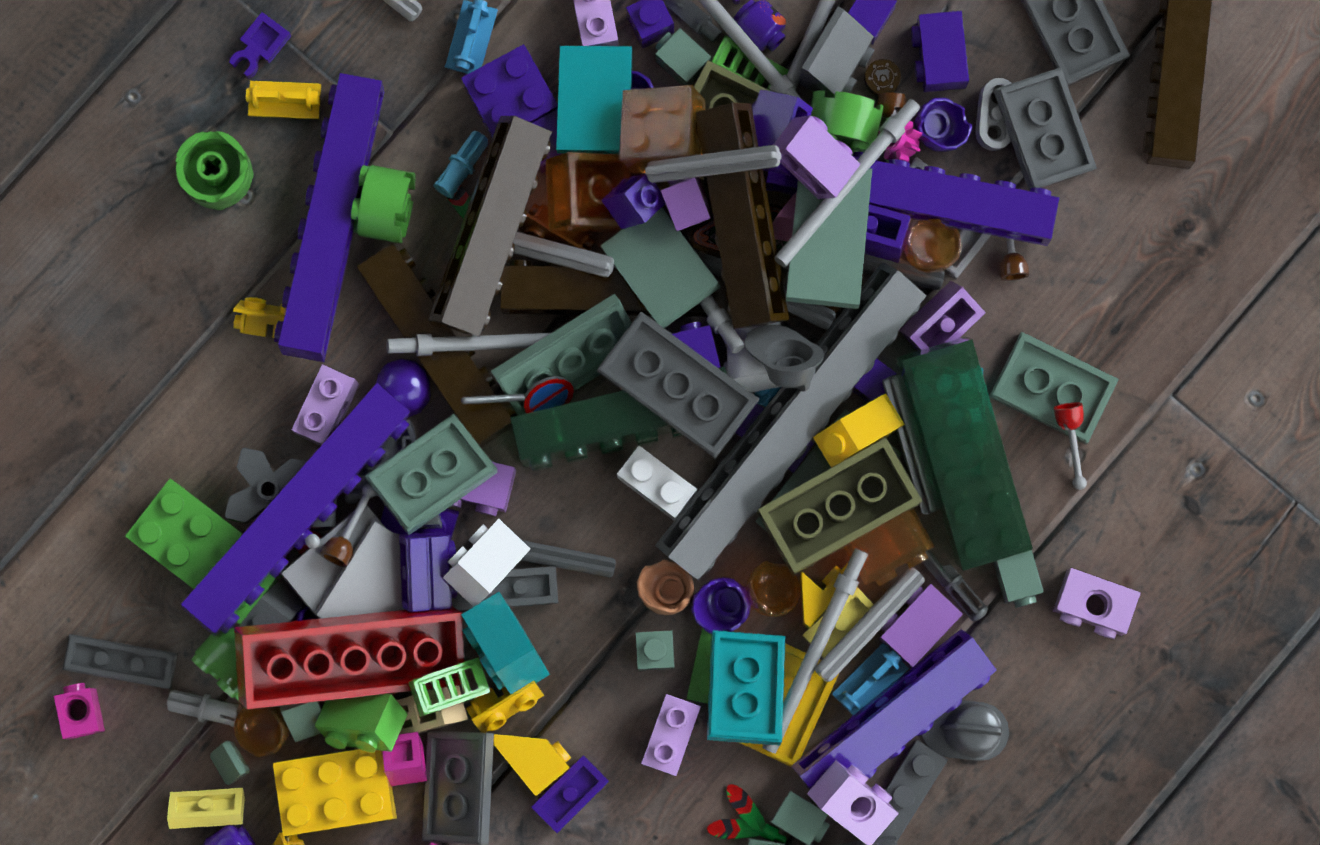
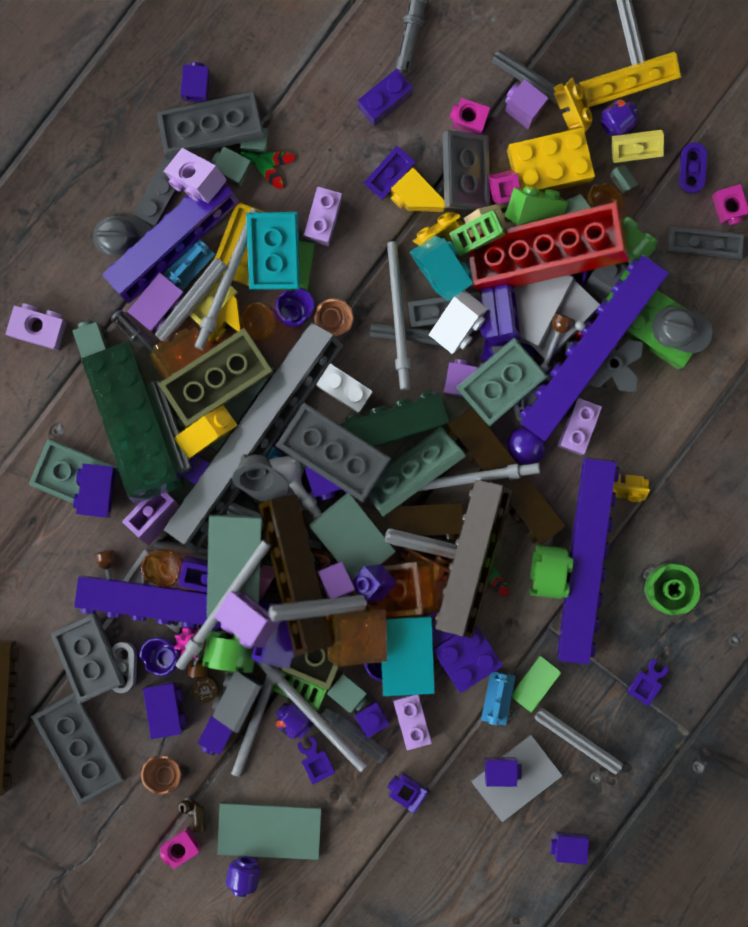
camera: 175 degrees right, 5 degrees up
(126, 770) = (693, 169): none -> dark purple plate
(167, 530) = (682, 329): none -> dark grey piece
(203, 707) = (645, 214): light grey axle -> none
(284, 99) = (627, 644): yellow hinge -> none
(416, 53) = (535, 684): none -> bright green slope
(461, 164) = (498, 606): medium azure axle -> none
(542, 395) = (430, 440): piece -> none
(571, 512) = (402, 363): none -> light grey bar
(655, 650) = (338, 273): sand green brick -> none
(1022, 361) = (95, 490): none -> dark purple brick
(1070, 417) = (60, 454): hinge -> none

